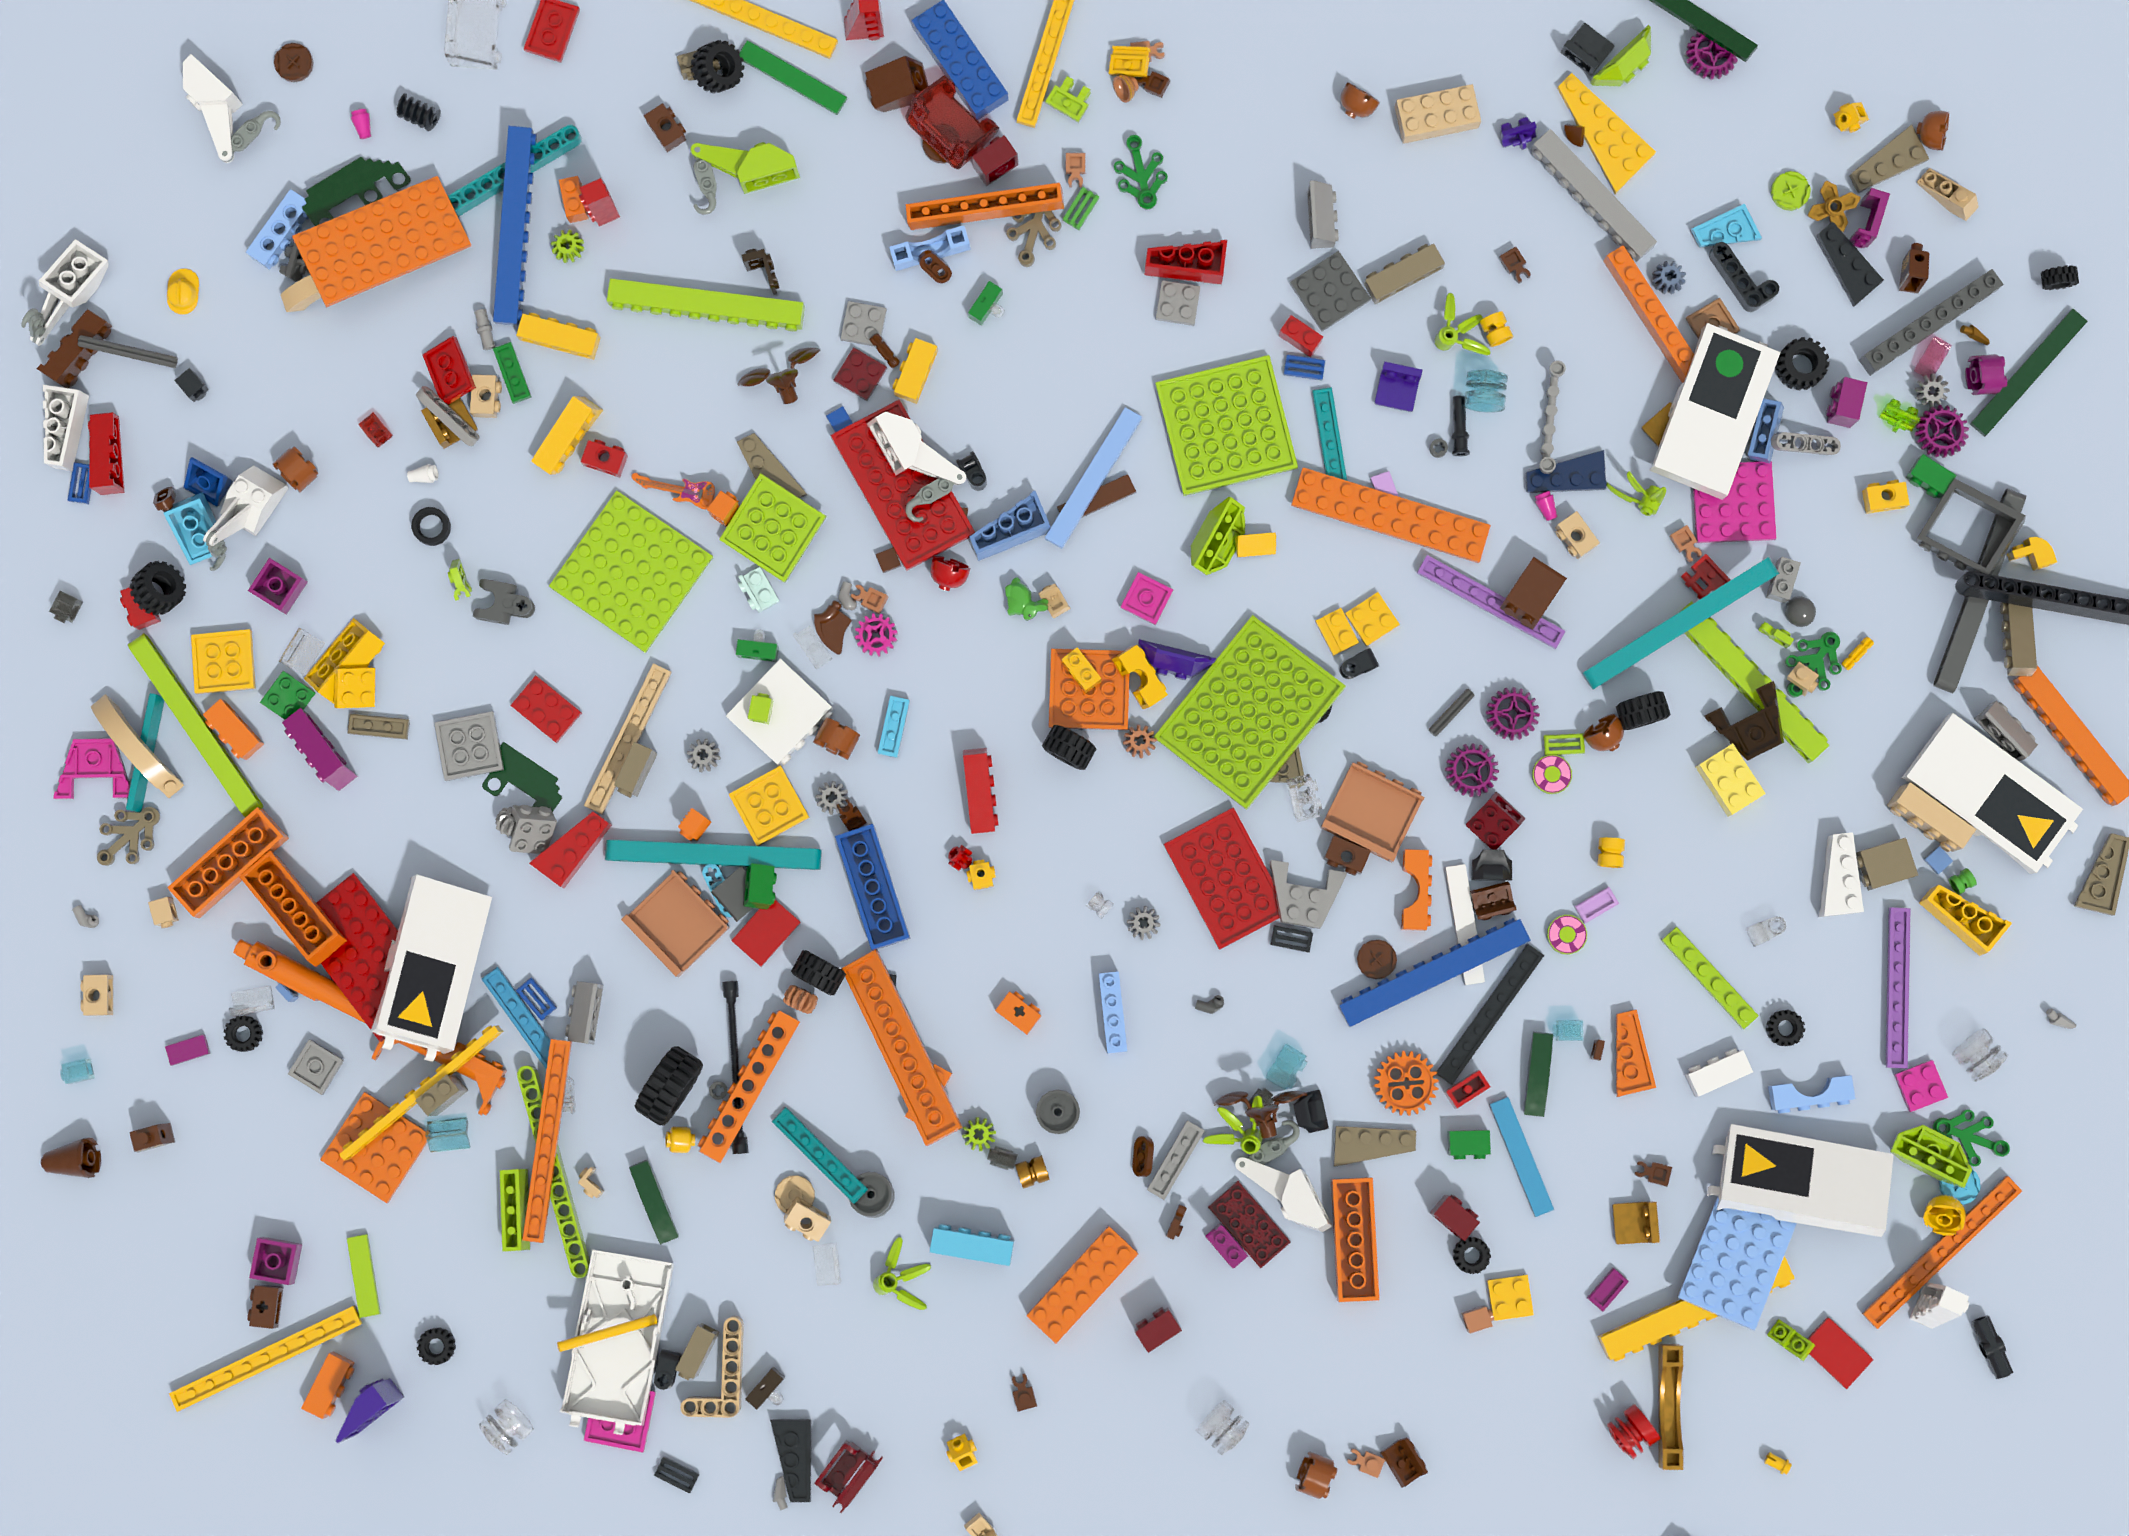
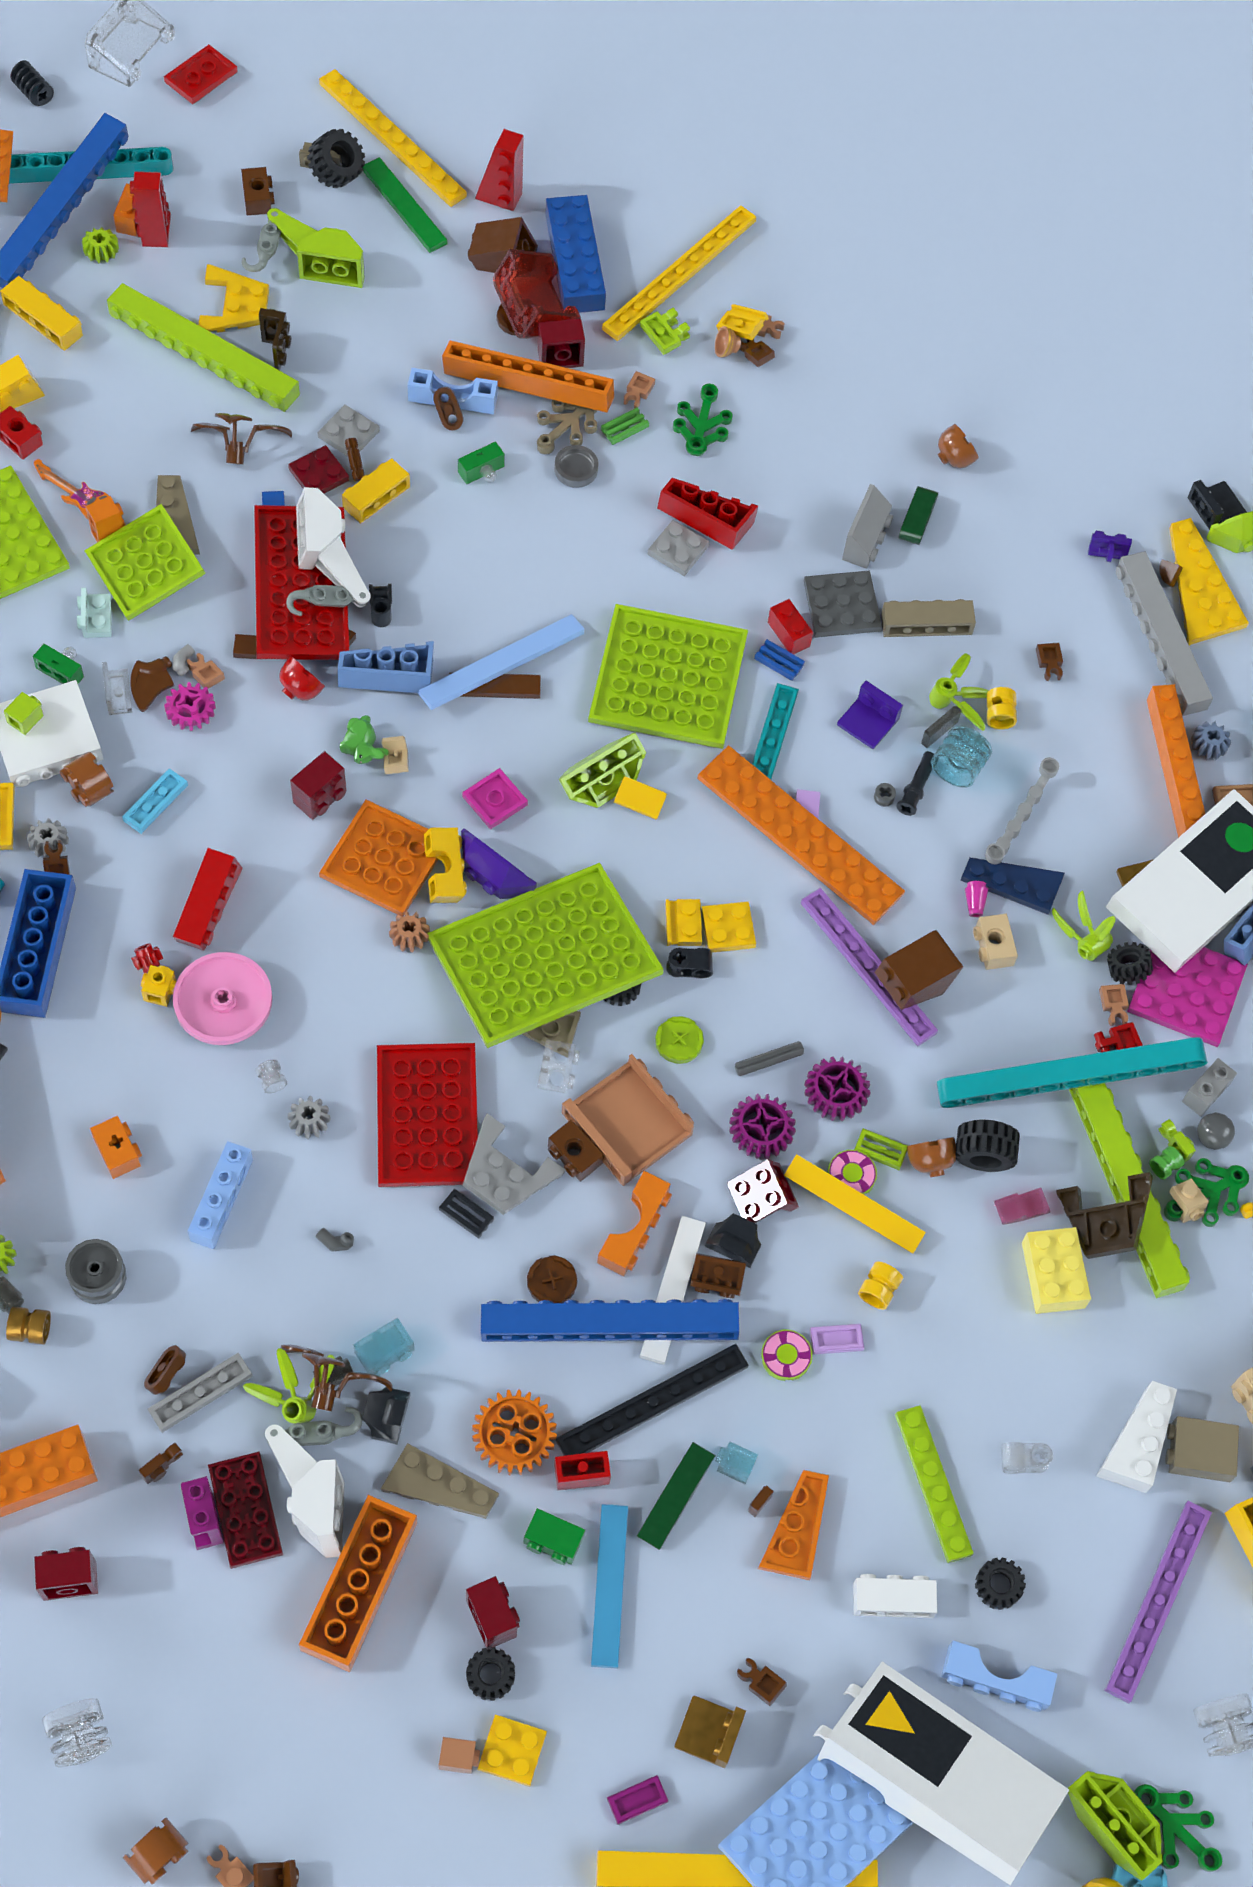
camera: 15 degrees right, 20 degrees down
(712, 240) = (241, 303): none -> yellow wing
(1012, 657) = (318, 785): none -> dark red brick
(1033, 863) = (222, 998): none -> bright pink dish
(1061, 267) = (576, 466): none -> flat silver piece
(1069, 747) = (328, 896): black tyre -> none
(1081, 670) = (384, 828): yellow brick -> none
(1354, 179) = (918, 515): none -> dark green beam
(1378, 729) = (679, 1040): none -> lime tile
(1437, 113) = (1033, 493): tan brick -> none
(1456, 368) = (941, 726): none -> clear smoke tile
(1565, 798) = (854, 1203): none -> yellow tile
(1680, 497) = (1122, 971): none -> black tyre
(1684, 740) = (1022, 1207): none -> clear pink slope
(1775, 655) = (1166, 1162): none -> bright green wheel
(1921, 1086) = (1139, 1734): dark pink plate -> none

